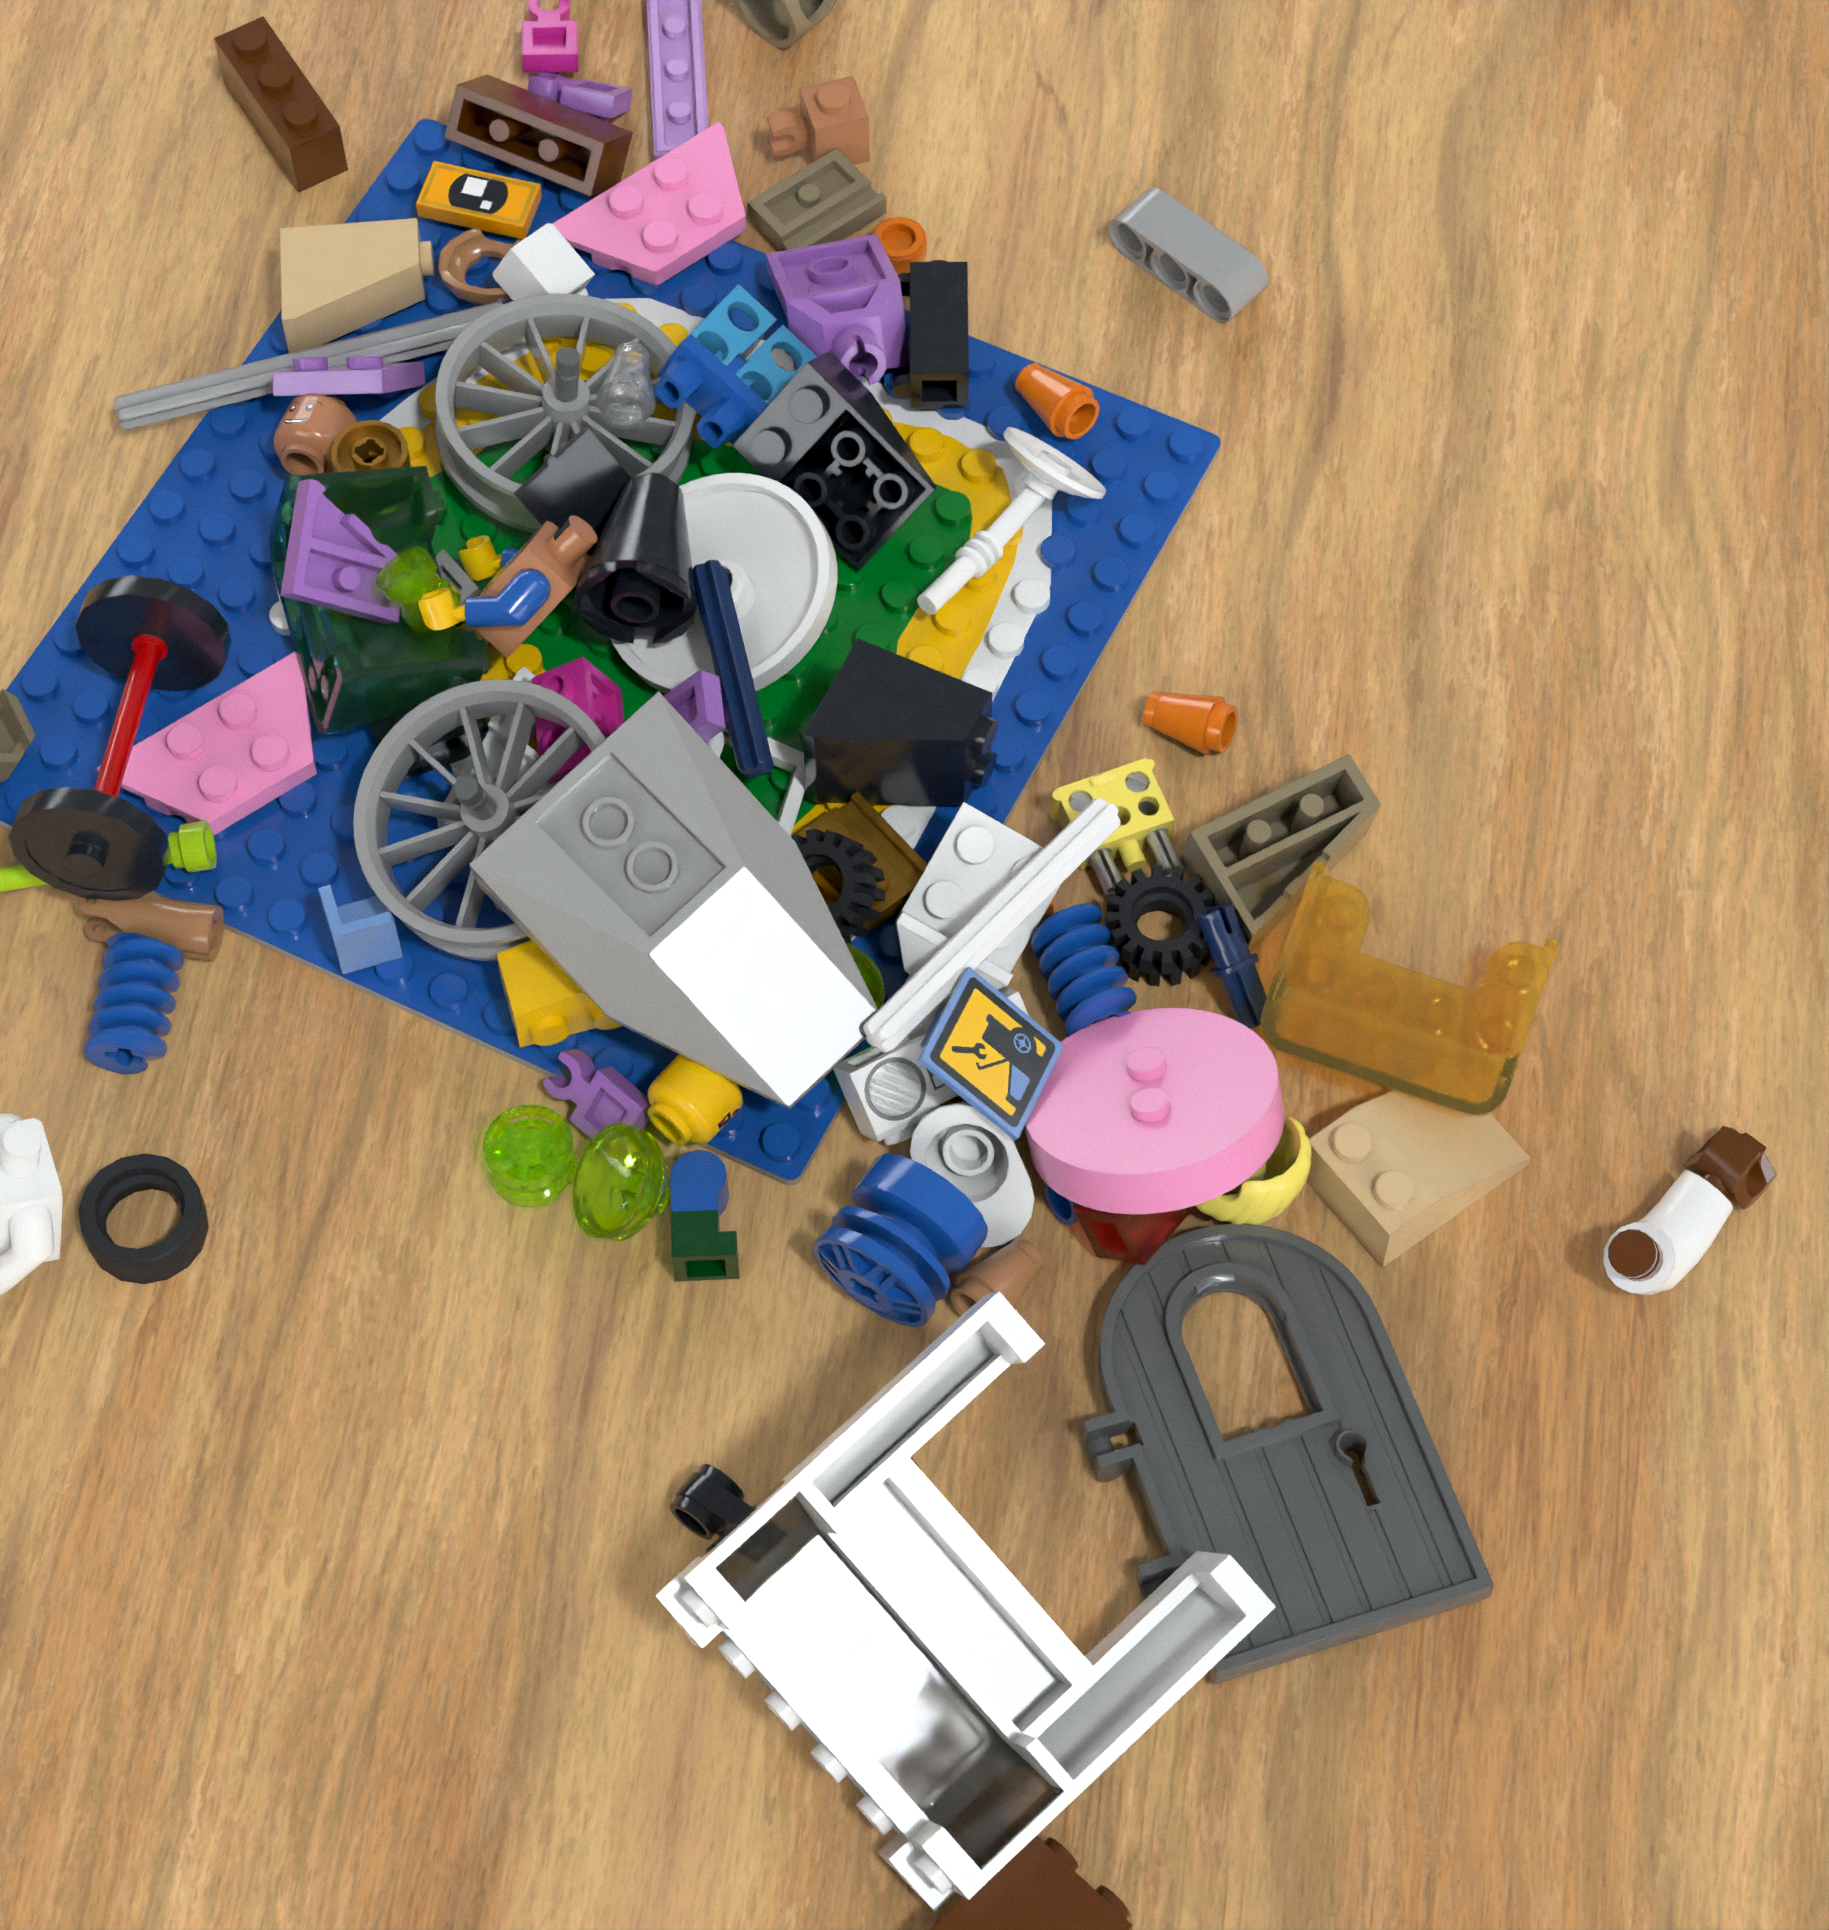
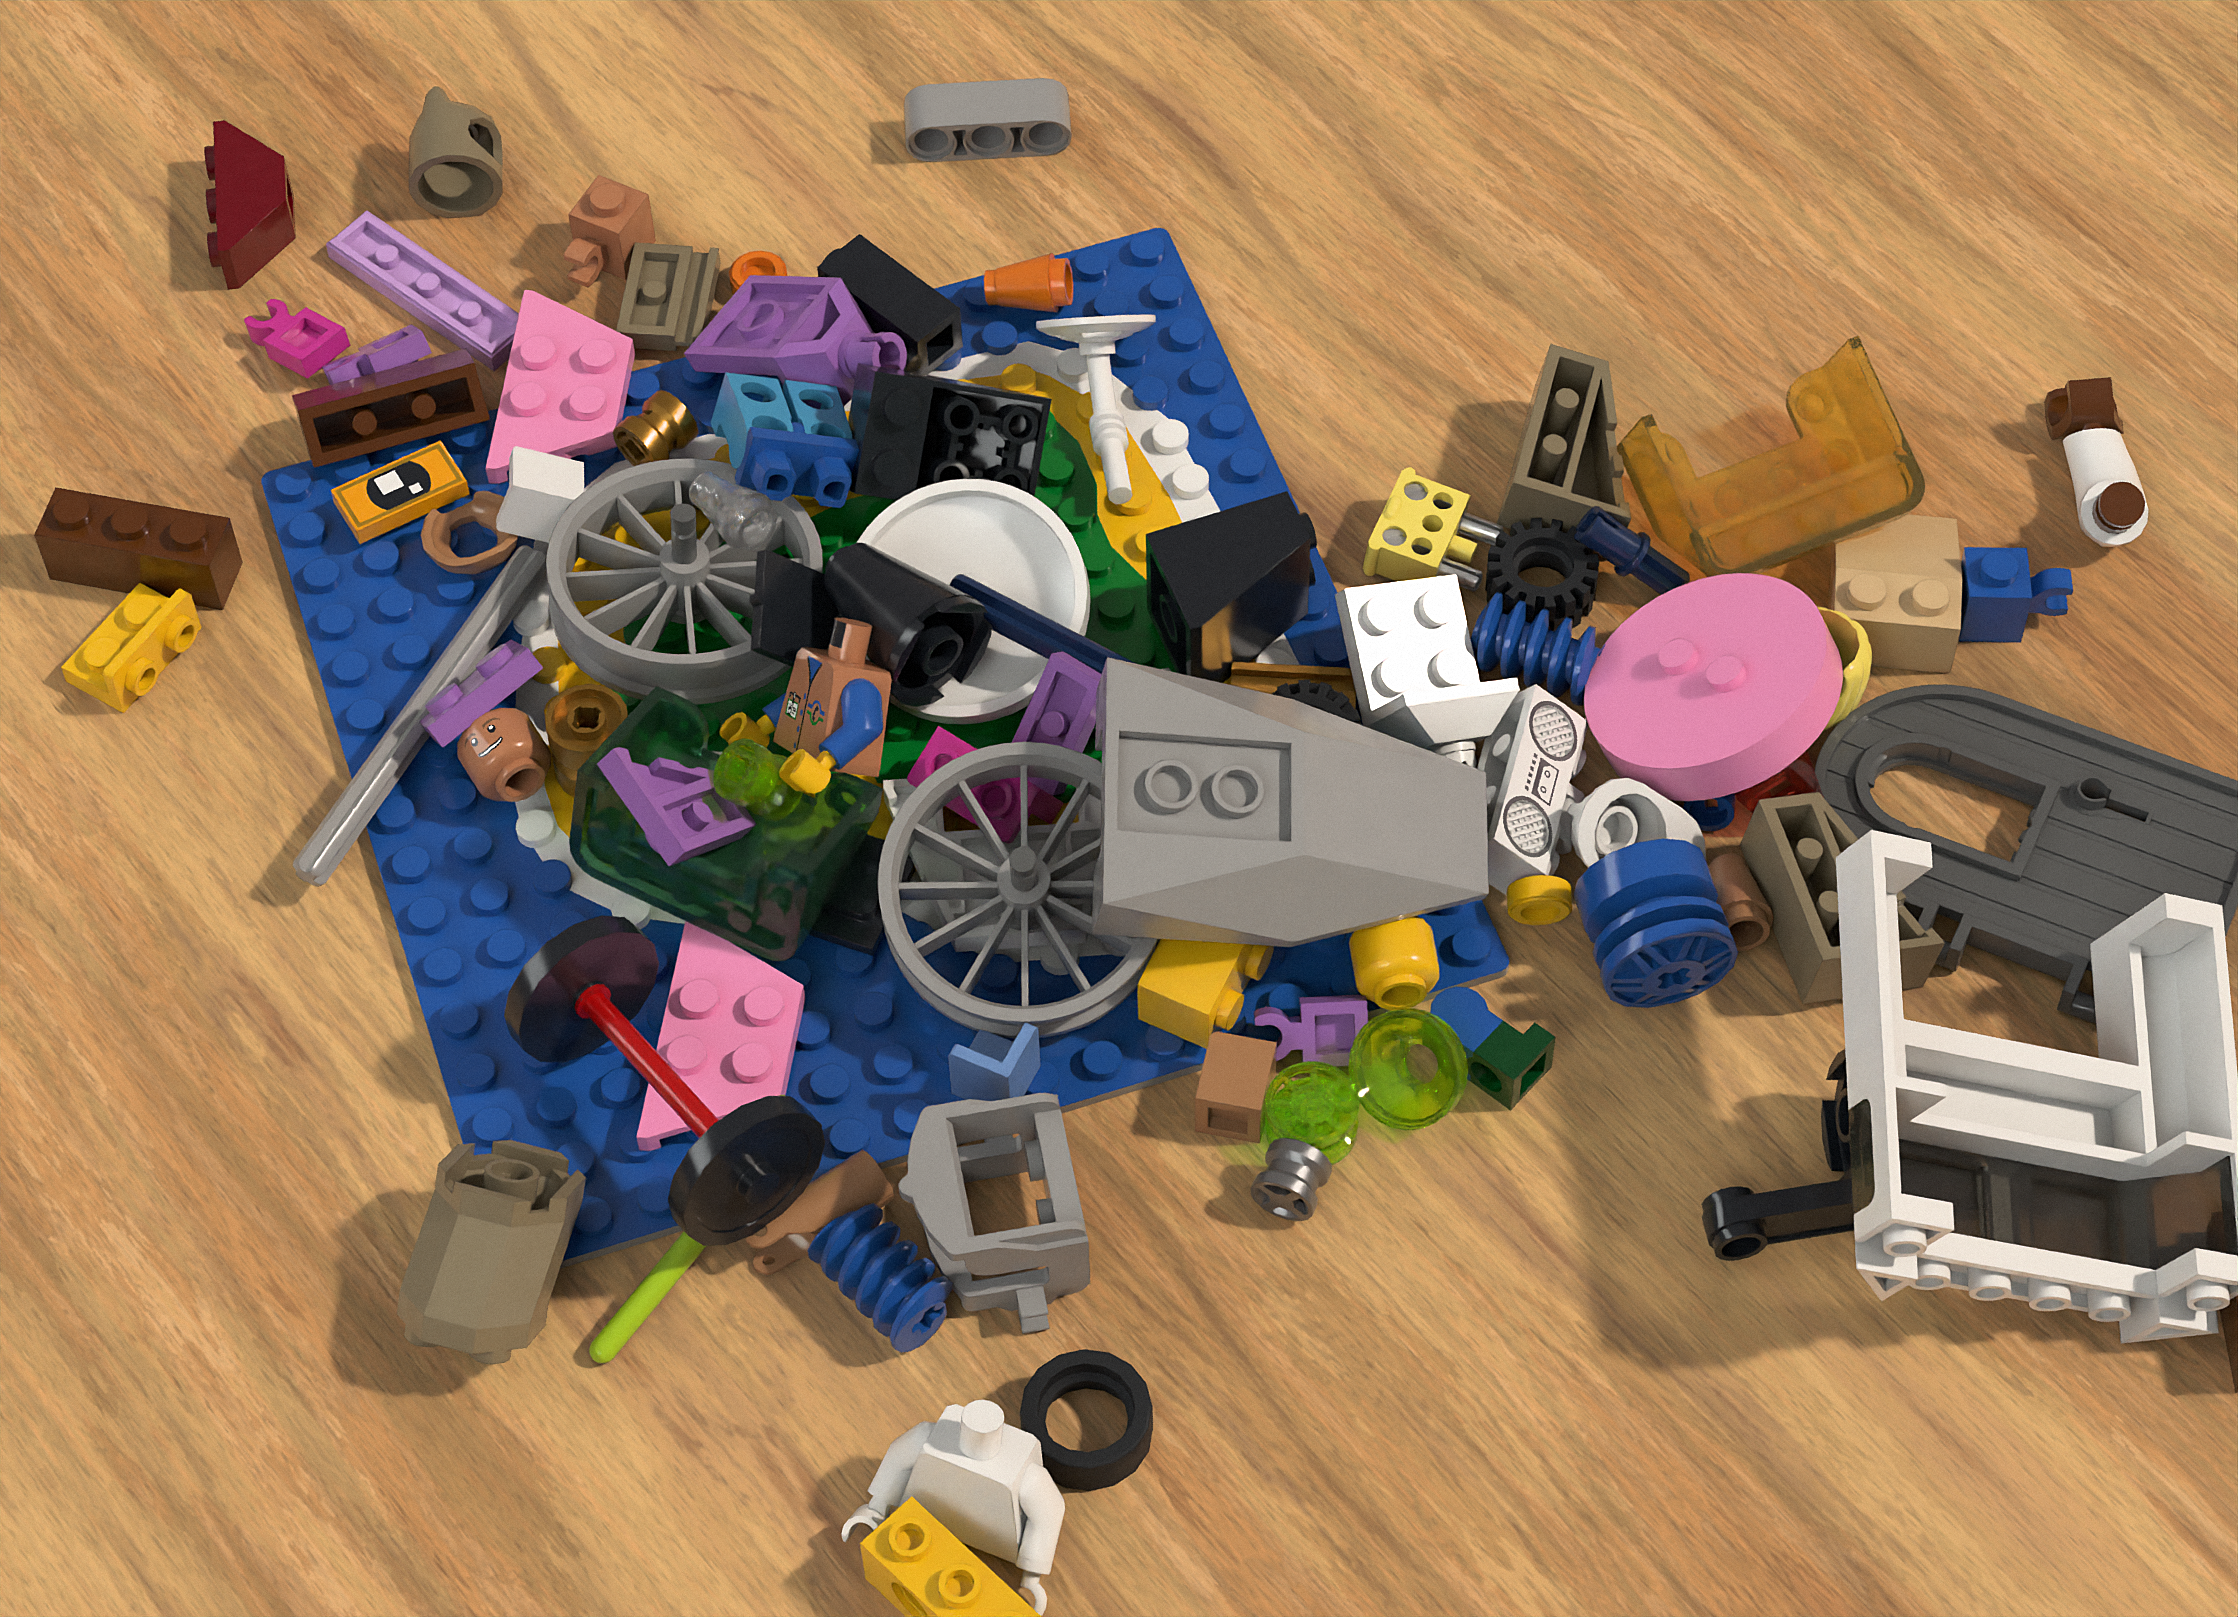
camera: 45 degrees left, 5 degrees down
(198, 1002) = (941, 1203): none -> light grey animal
(210, 170) = (133, 646): none -> yellow bracket
(348, 277) = (371, 625): tan slope -> none
(459, 1185) = (1291, 1179): none -> flat silver wheel
(499, 1081) = (1234, 1086): none -> medium nougat panel
(677, 294) = (655, 432): none -> pearl gold wheel
(857, 1147) = (1539, 900): none -> yellow tile
(990, 1053) = (1574, 735): piece -> none
(991, 925) = (1473, 652): white axle -> none
(1070, 1310) = (1793, 860): none -> dark tan wedge
(1192, 719) = (1389, 425): orange cone -> none
(1476, 1238) = (2002, 593): none -> blue brick

